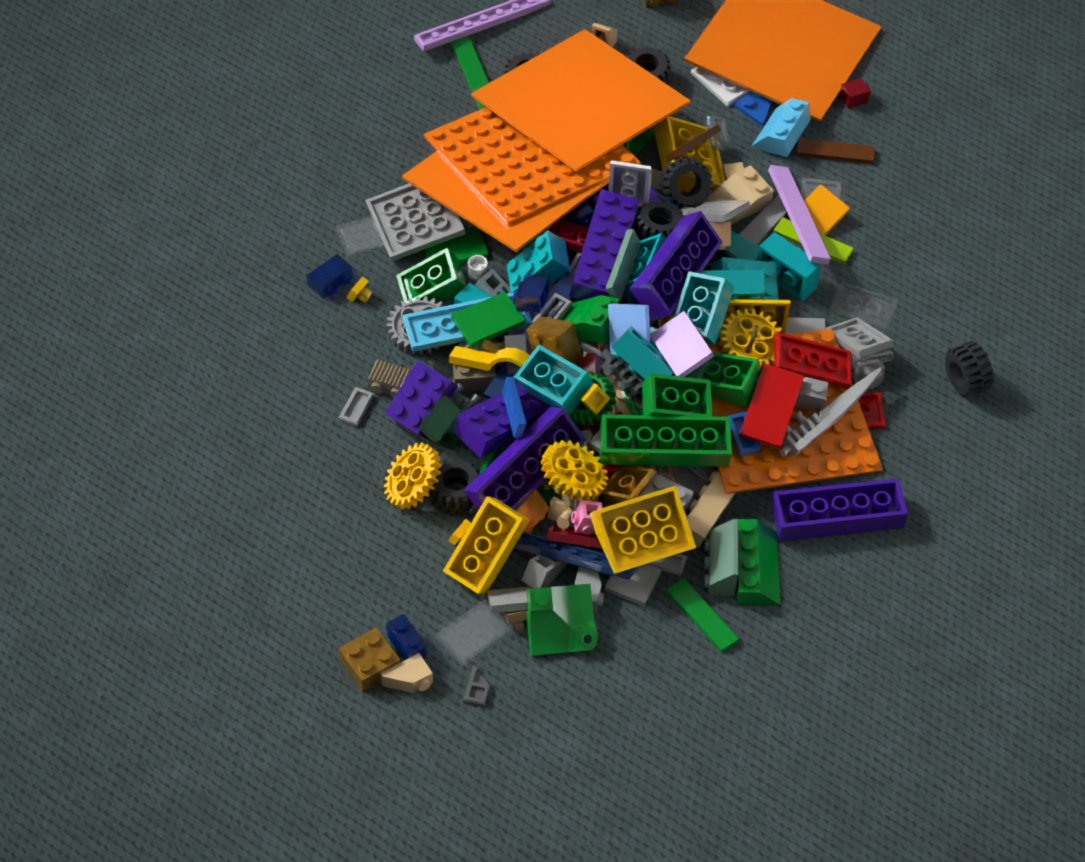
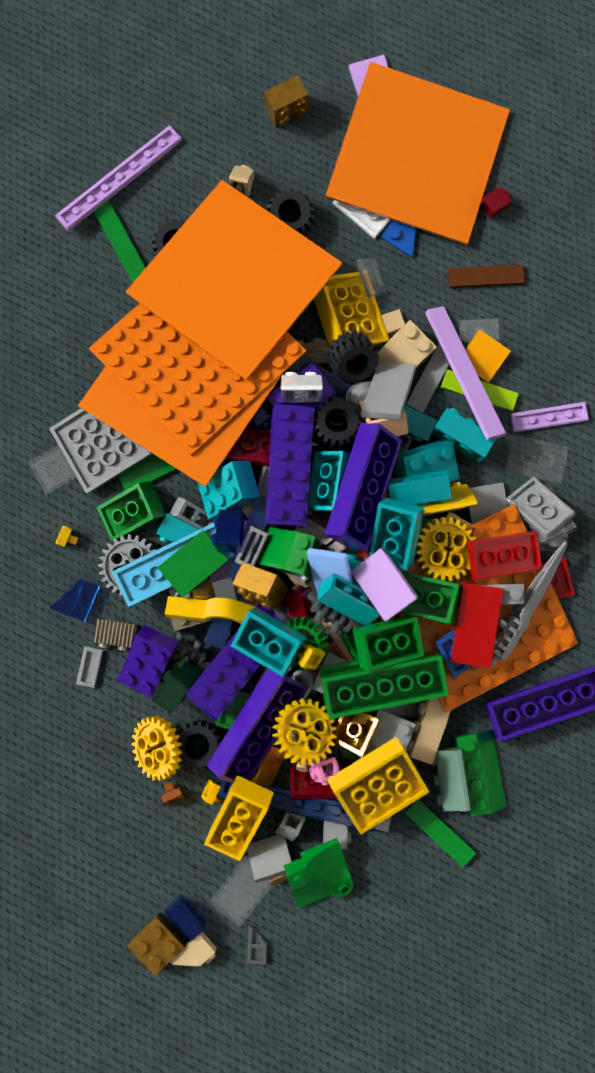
camera: 10 degrees left, 30 degrees up
(330, 276) = (34, 525): clear blue brick -> none
(357, 347) = (77, 600): none -> clear blue wing
(418, 530) = (173, 795): none -> dark orange tile
(477, 267) = (170, 485): white wheel -> none
(514, 407) = (237, 677): blue tile -> none
(623, 265) = (312, 492): sand green tile -> none
(692, 143) = (351, 307): reddish brown tile -> none
(784, 128) = (432, 261): medium azure slope -> none
(882, 274) = (549, 417): none -> lavender tile

